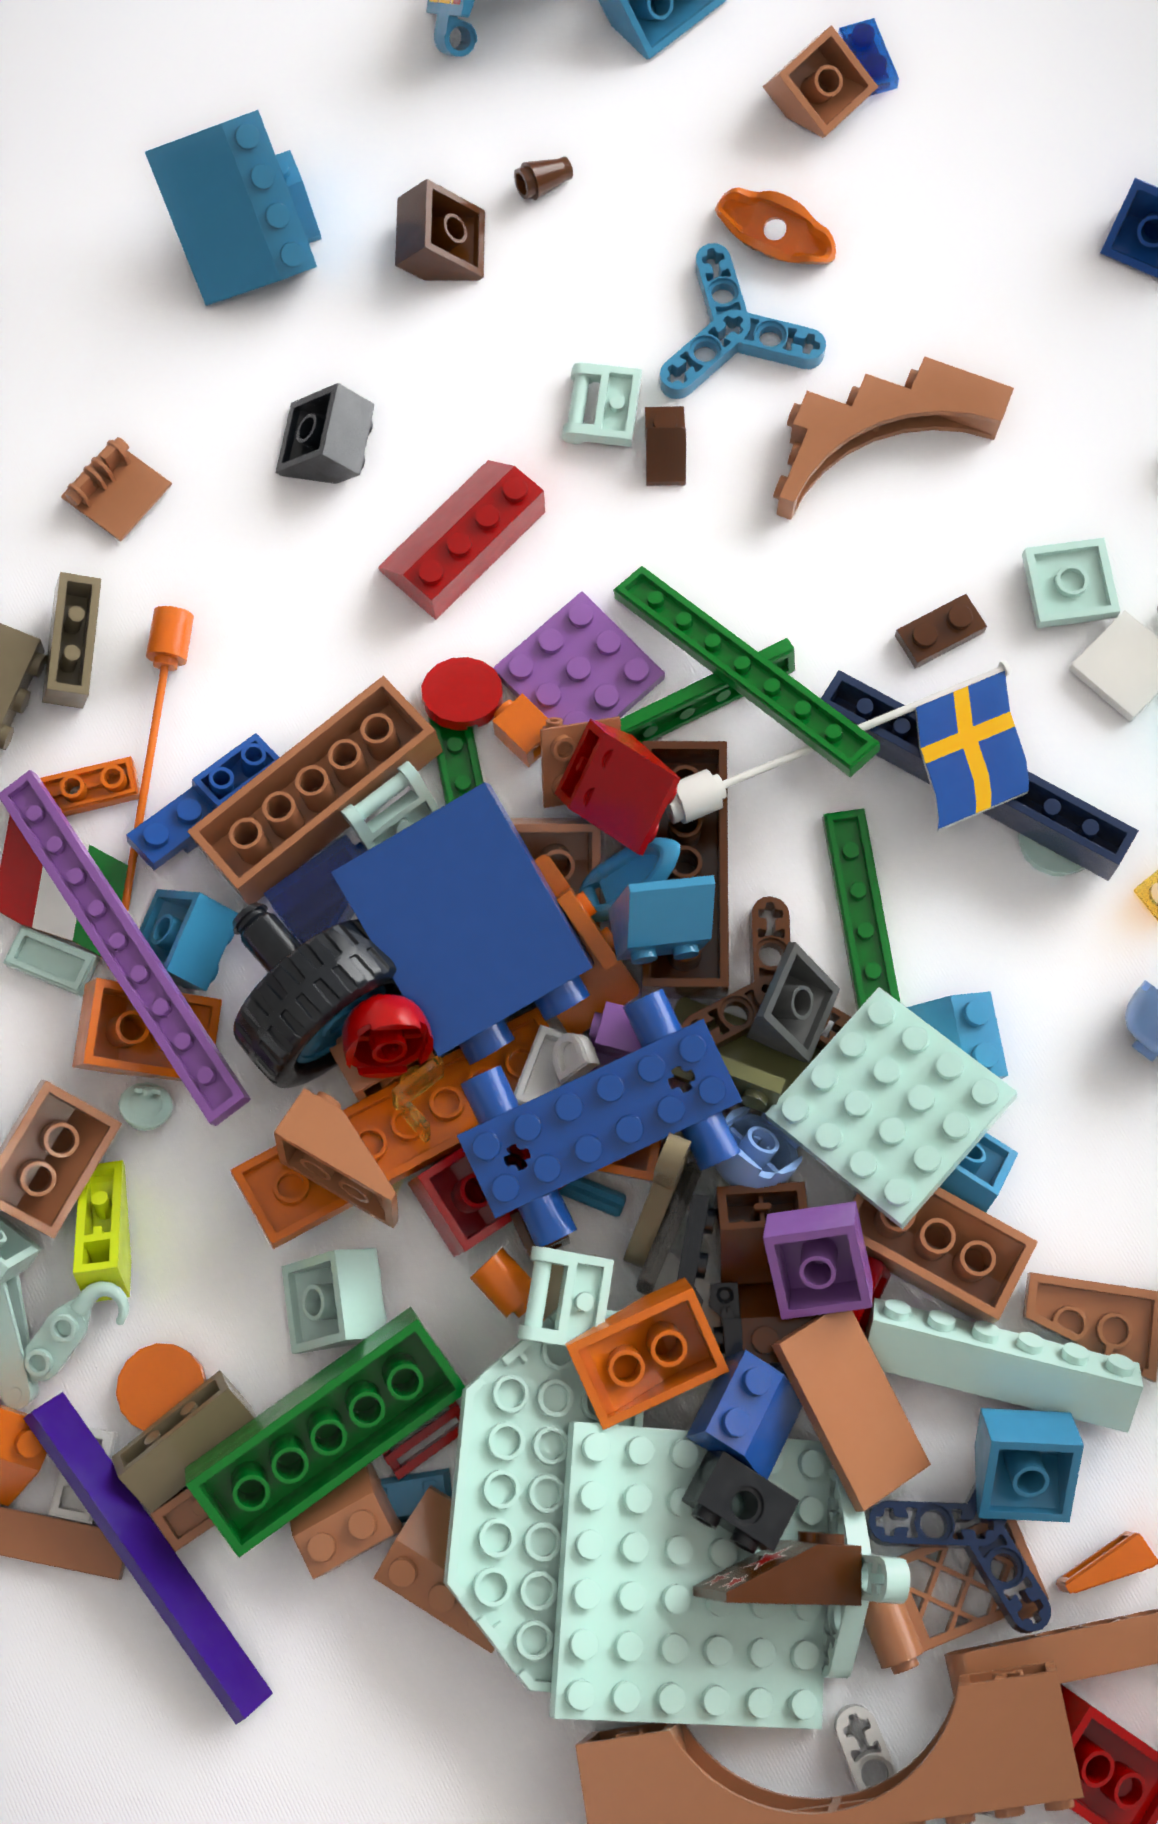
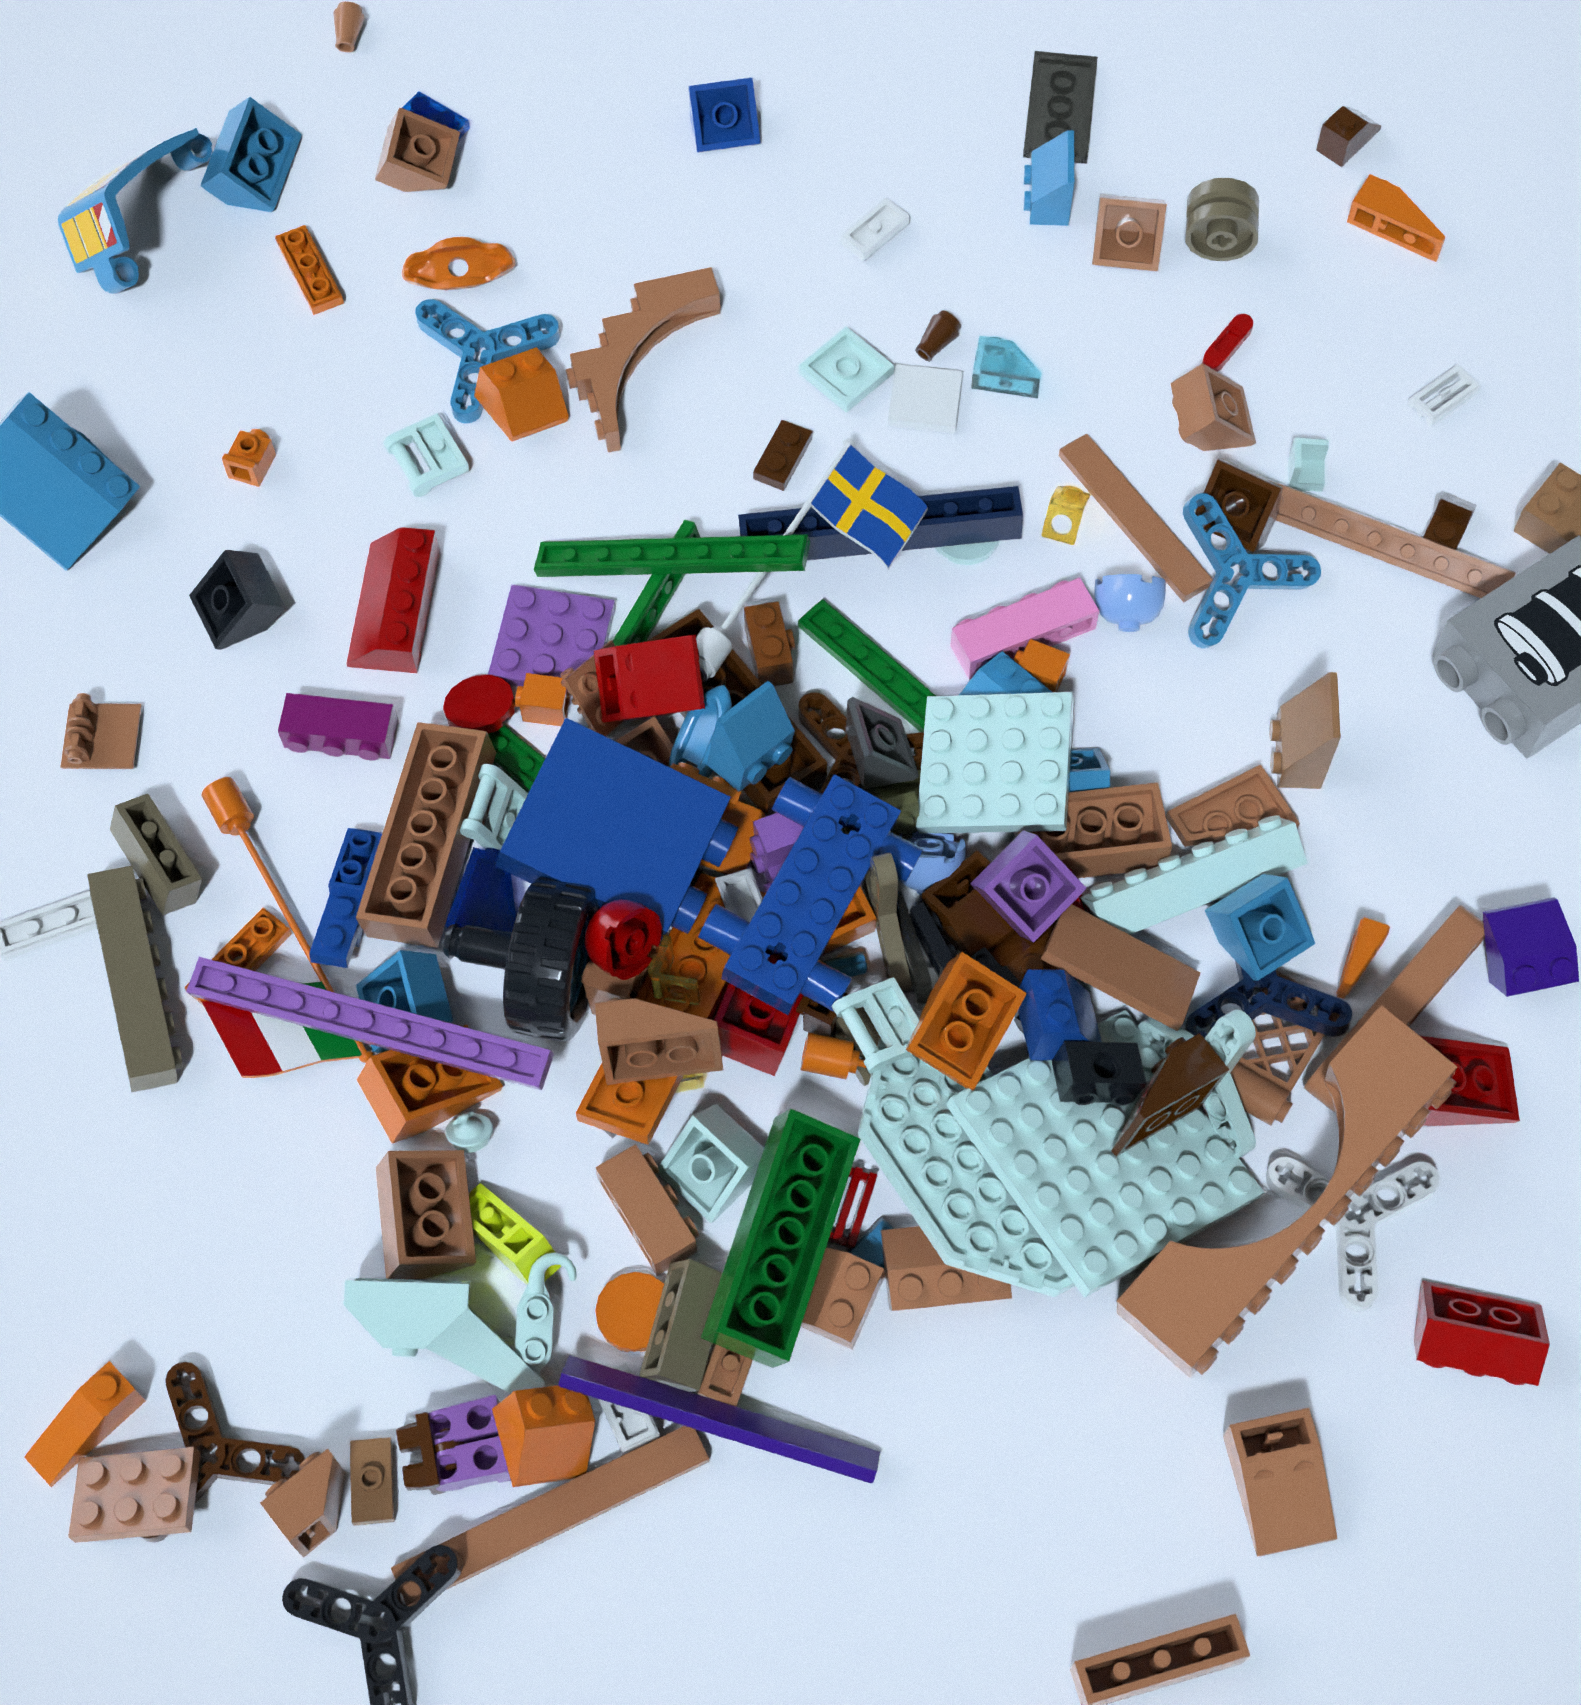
camera: 40 degrees left, 10 degrees down
(51, 961) = (314, 1086): light aqua tile -> none
(241, 1301) = (648, 1208): none -> nougat brick
(320, 626) = (337, 726): none -> magenta brick
(439, 235) = (211, 413): reddish brown slope -> none
(441, 300) = (249, 457): none -> orange brick
(541, 176) = (256, 333): reddish brown cone -> none
(573, 1057) = (757, 875): white tile -> none
(636, 142) = (309, 269): none -> orange tile
(665, 446) = (494, 454): reddish brown slope -> none
(732, 403) = (521, 394): none -> orange slope
(774, 821) = (769, 643): none -> dark orange brick
(1022, 1031) = (1044, 663): none -> orange brick
(1039, 976) = (1043, 617): none -> bright pink brick

